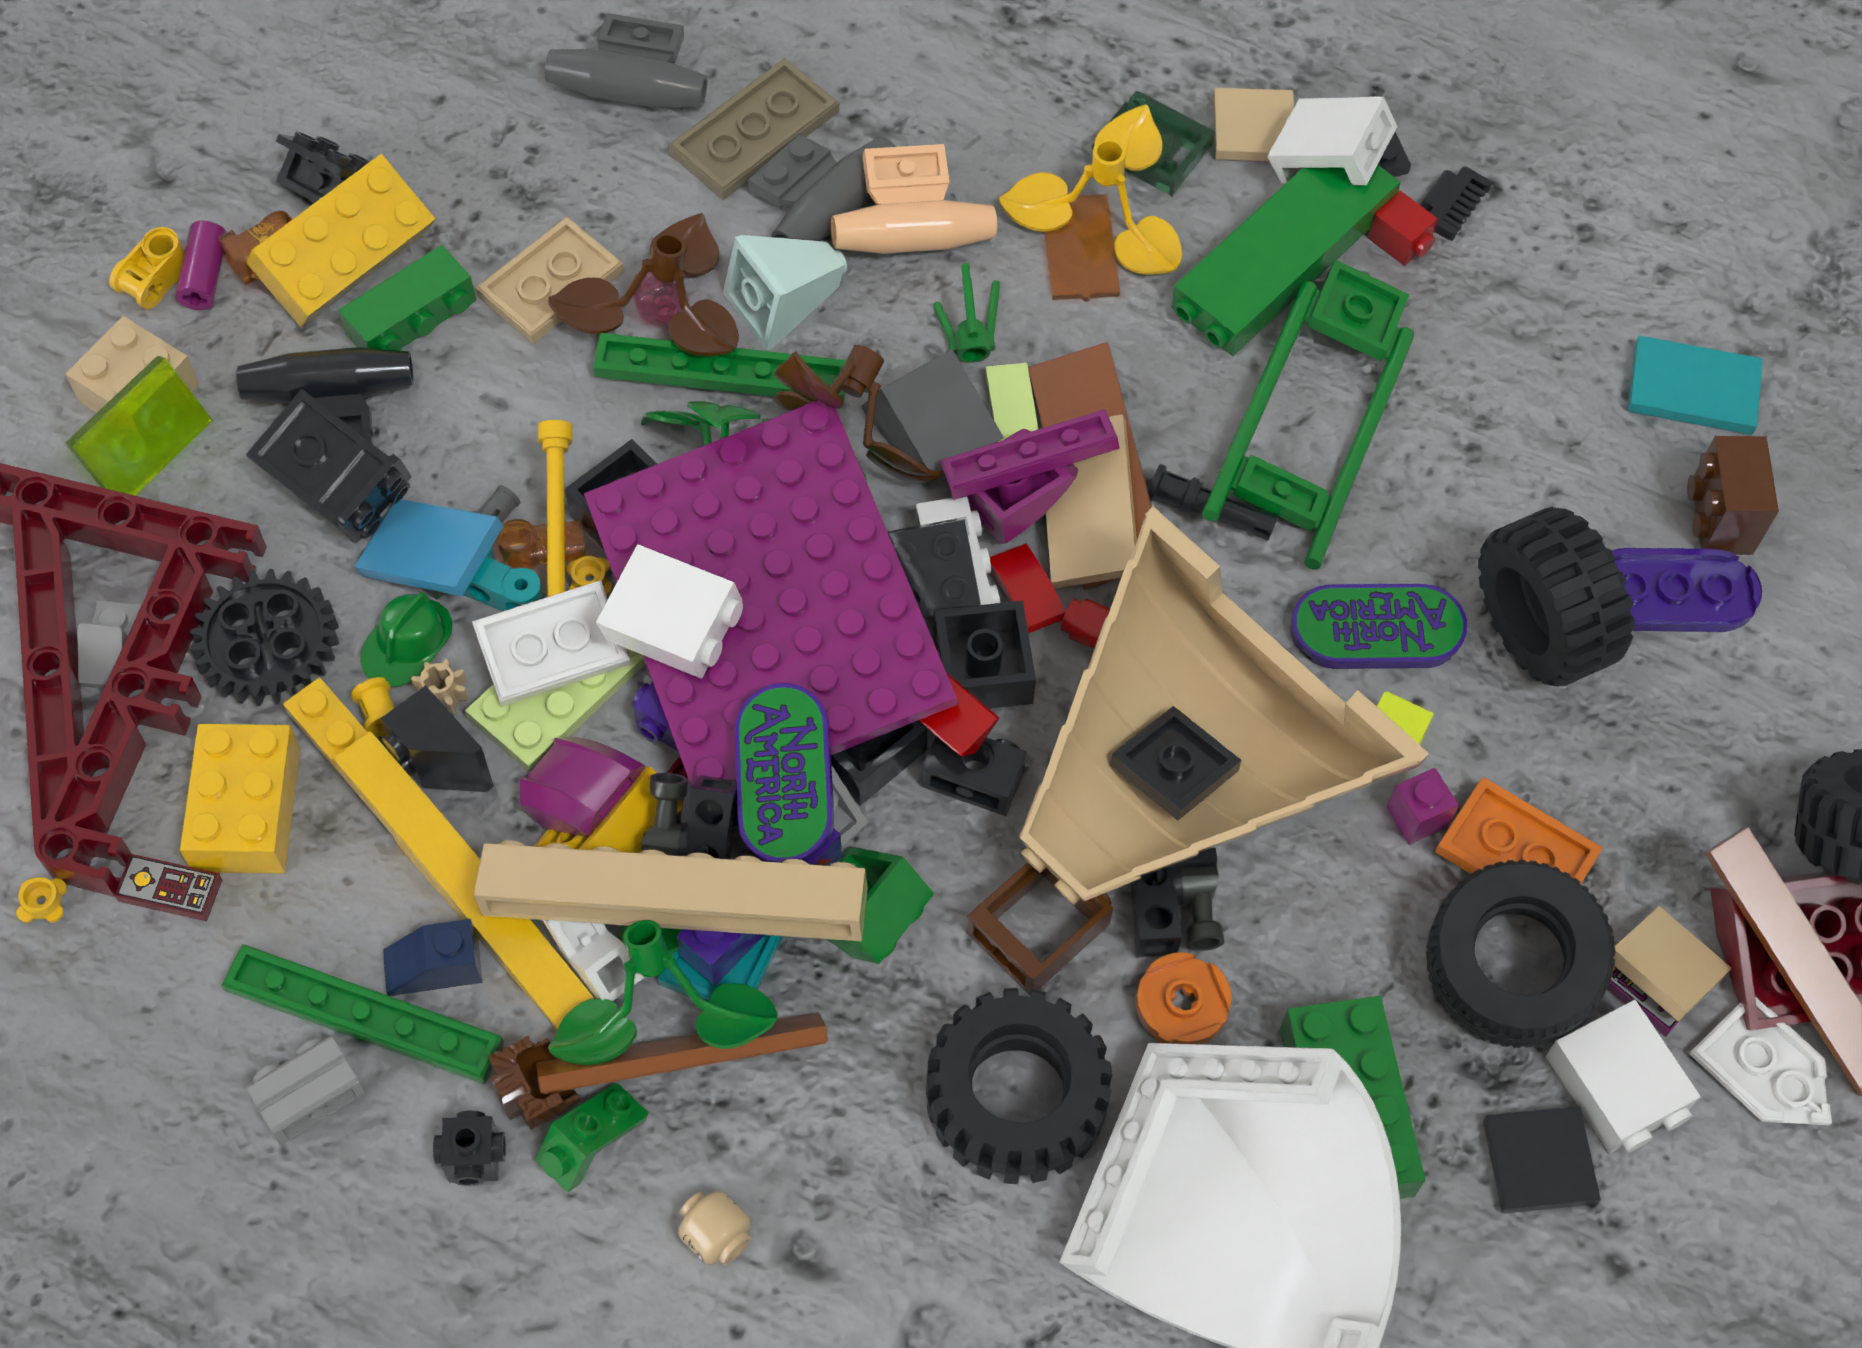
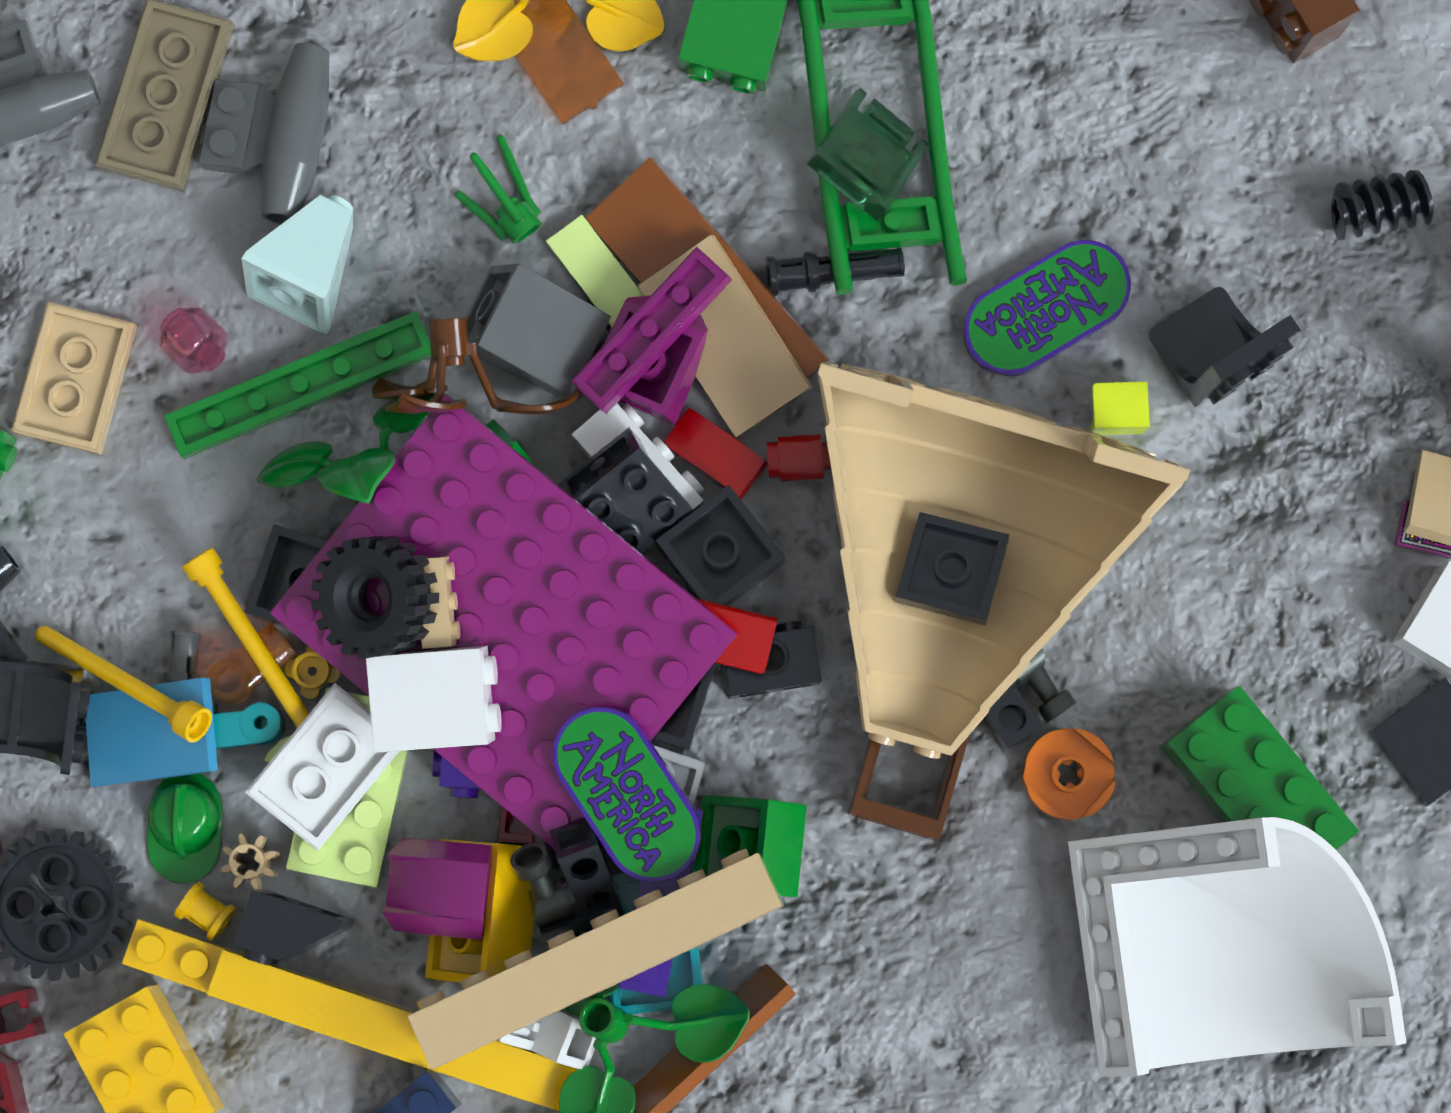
camera: 30 degrees left, 20 degrees up
(463, 534) = (187, 718): none -> yellow piece
(661, 484) = (345, 601): none -> black tyre
(677, 251) = (182, 277): reddish brown plant -> none
(724, 536) = (444, 629): none -> tan piece
(910, 206) = (381, 115): light nougat plate -> none
(1031, 1027) = (1042, 942): black tyre -> none
(1288, 430) = (867, 155): none -> clear green container
(1422, 806) = (1199, 467): magenta brick -> none
(1504, 828) = (1279, 465): orange plate -> none
(1518, 722) = (1216, 347): none -> black bracket
(1556, 596) = (1204, 213): black tyre -> none
(1559, 905) = (1397, 588): black tyre -> none
(1688, 589) = (1287, 118): dark purple tile -> none
(1723, 687) = (1381, 201): none -> black piece

